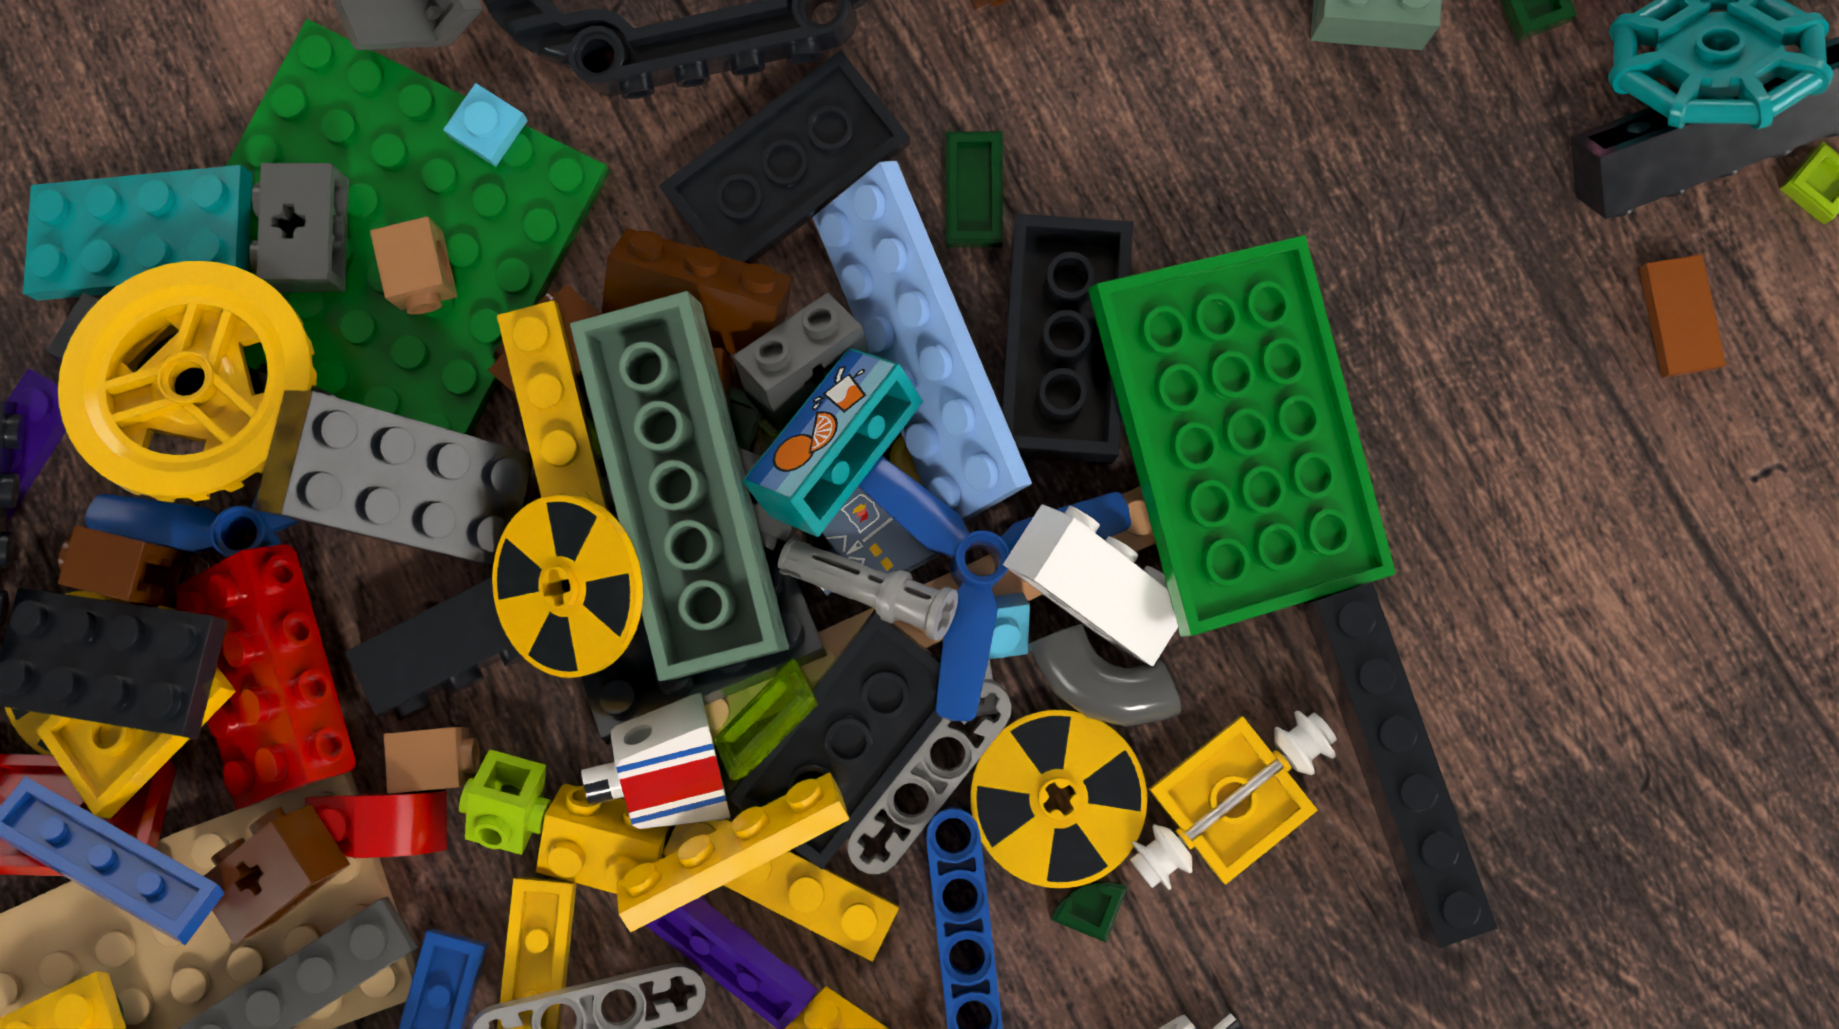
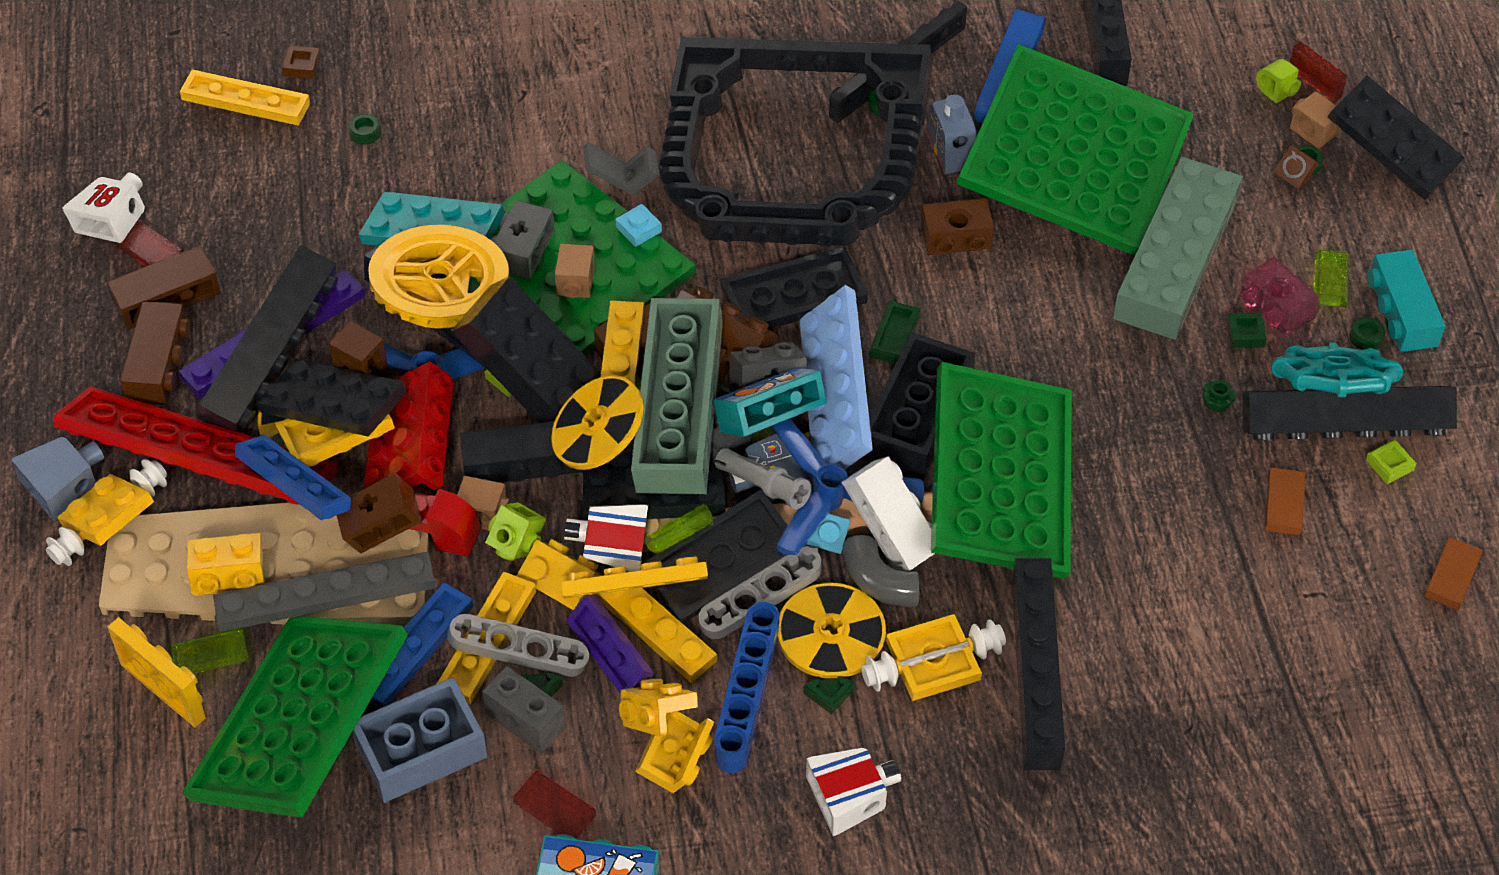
camera: 15 degrees right, 30 degrees down
(1521, 158) = (1216, 401): none -> dark green plate

